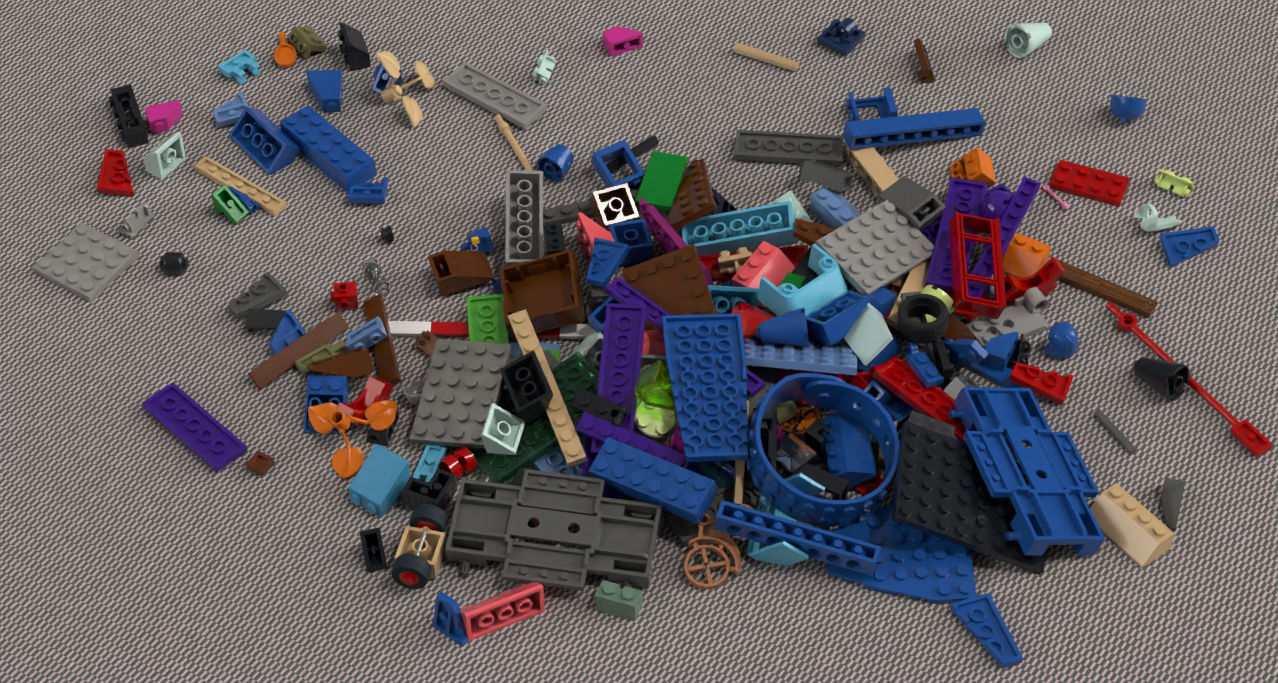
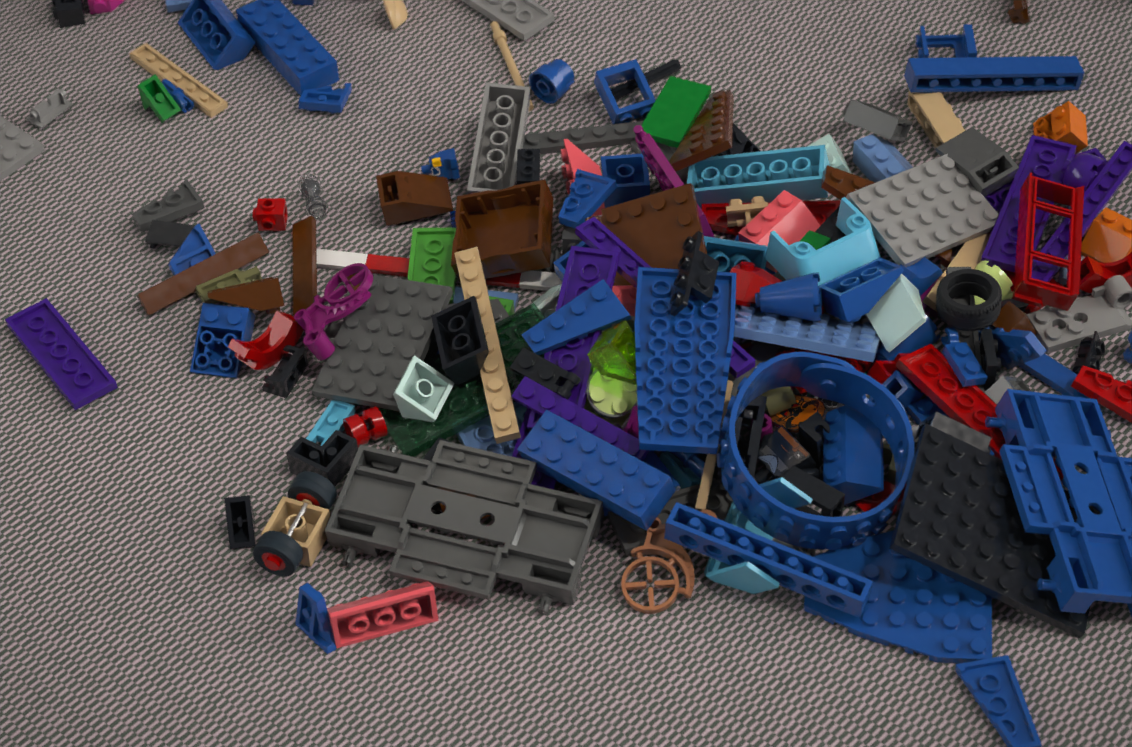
camera: 10 degrees right, 0 degrees up
(114, 174) = (36, 55): red wing -> none
(165, 156) = (98, 39): light aqua slope -> none
(173, 263) = (80, 161): black head -> none
(260, 463) = (128, 404): copper plate -> none
(324, 418) = (216, 356): orange plant -> none
(366, 335) = (286, 262): medium blue bracket -> none
(379, 481) = (264, 439): dark azure slope -> none
(387, 234) = (336, 148): black bush -> none
(404, 378) = (318, 315): none -> magenta piece
(613, 205) = (610, 134): reddish brown brick -> none
(617, 601) = (534, 619): sand green piece -> none
(625, 358) = (586, 313): none -> blue wing
(709, 318) = (695, 275): none -> black bracket
(788, 147) = (837, 85): dark grey plate -> none
(1000, 350) = (1065, 349): blue slope -> none

